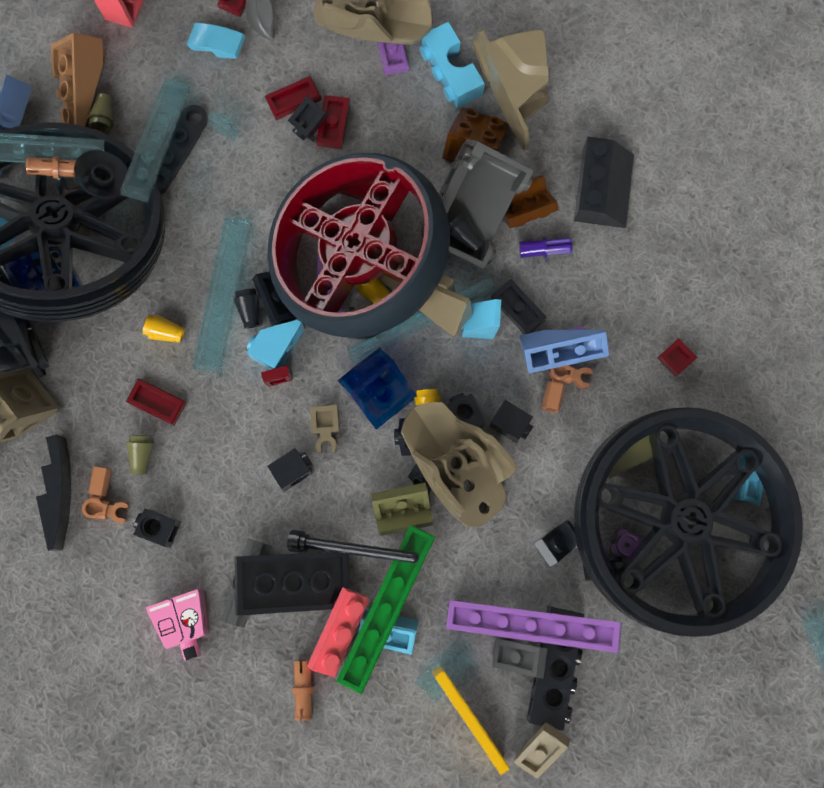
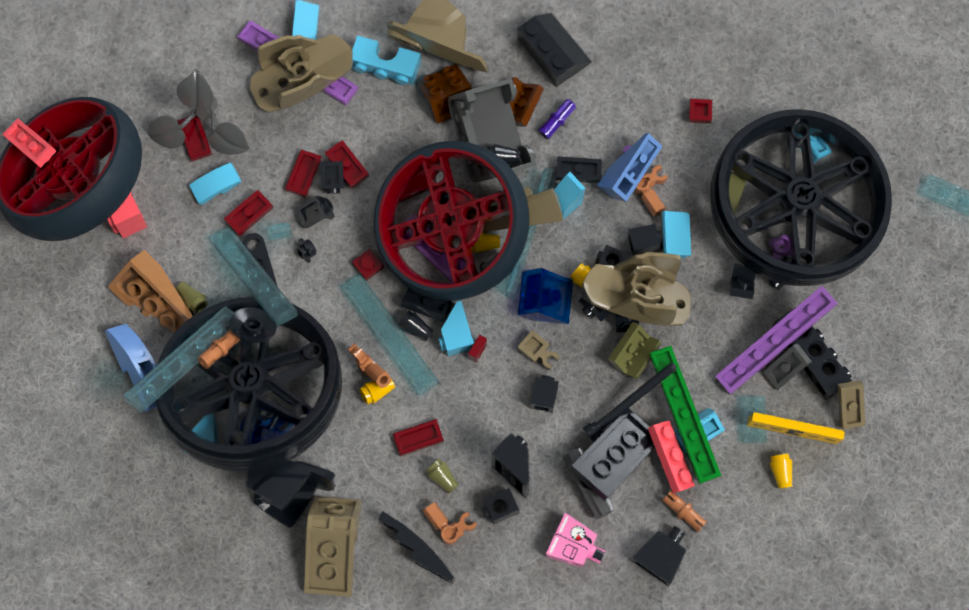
camera: 45 degrees left, 5 degrees down
(175, 304) = (369, 367): none -> nougat bar
(193, 506) = (512, 462): none -> black slope
(215, 88) = (248, 213): none -> dark red plate
(227, 160) = (305, 249): none -> black plate
(242, 709) = (662, 555): none -> black torso
(262, 219) = (368, 264): none -> dark red plate
(268, 135) = (314, 211): none -> black bracket
(422, 742) = (782, 470): none -> yellow cone
(544, 443) = (676, 233): none -> medium azure slope

